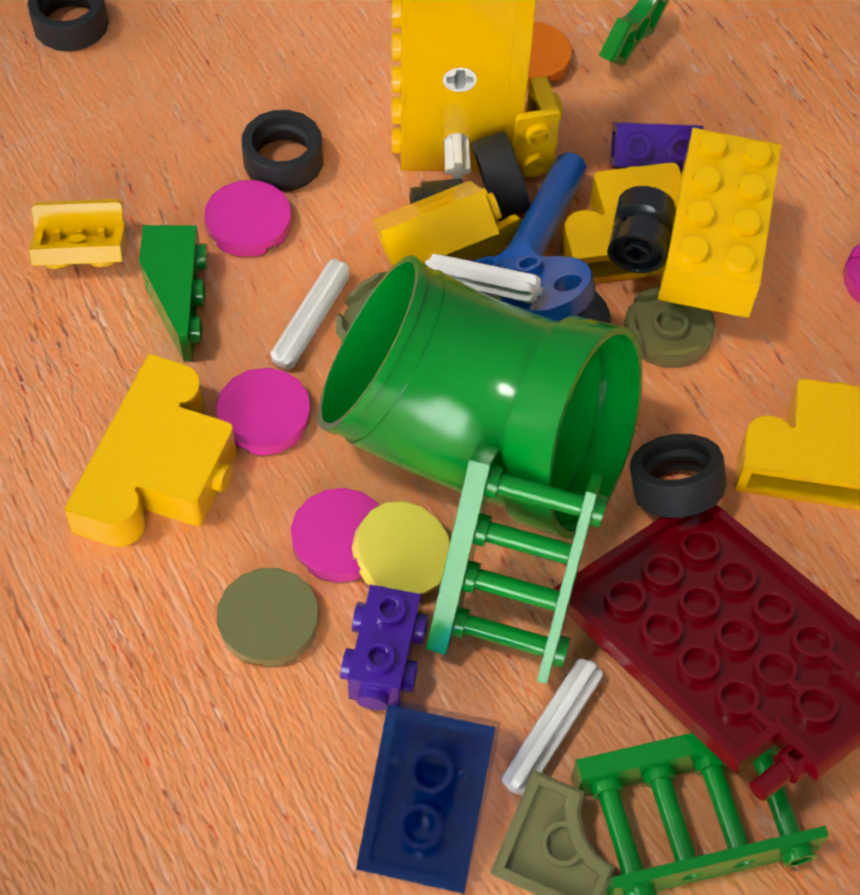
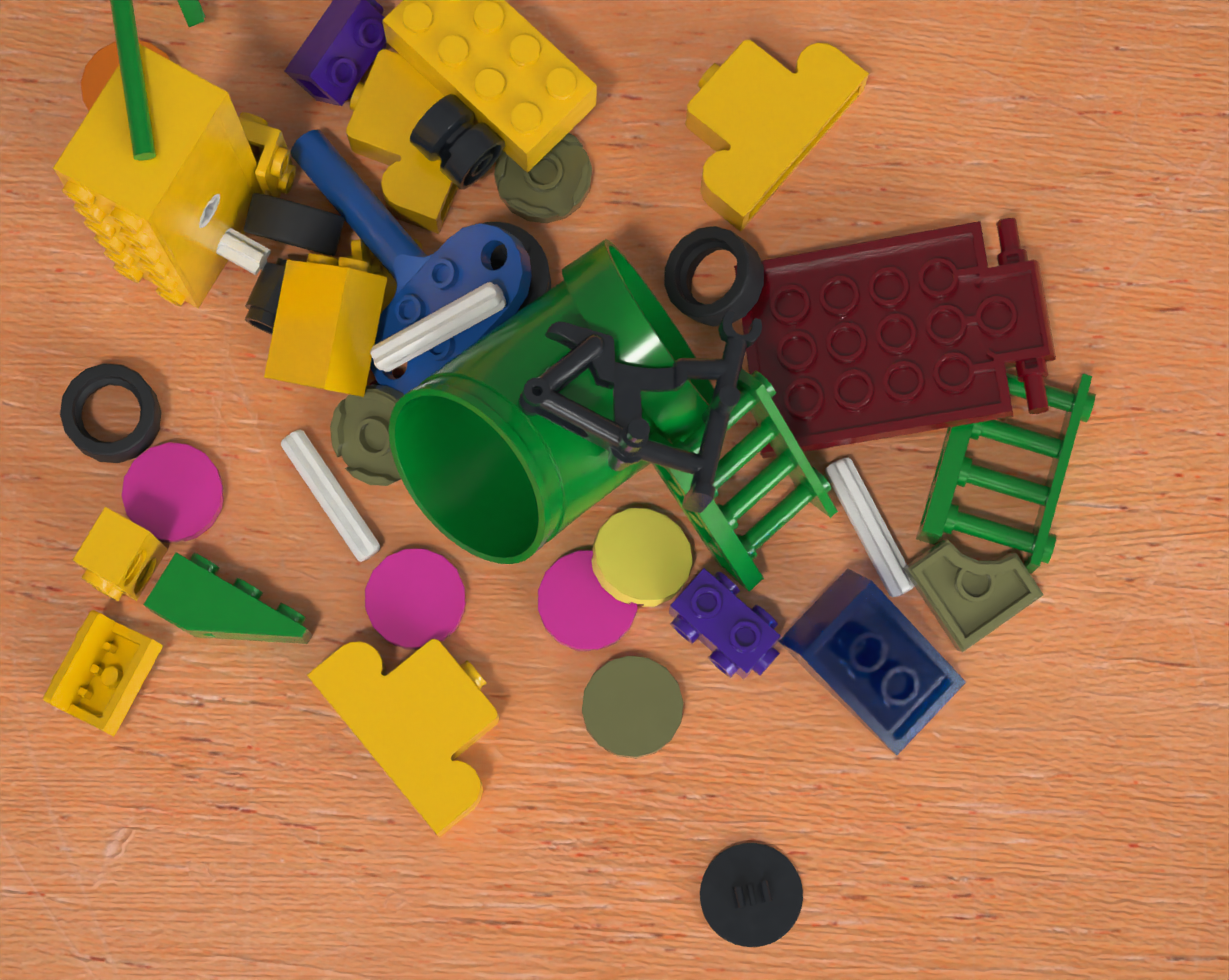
camera: 60 degrees left, 20 degrees up
(151, 811) = (751, 895): none -> black piece
(170, 187) = (119, 556): none -> yellow brick
(472, 394) = (628, 434): none -> black piece

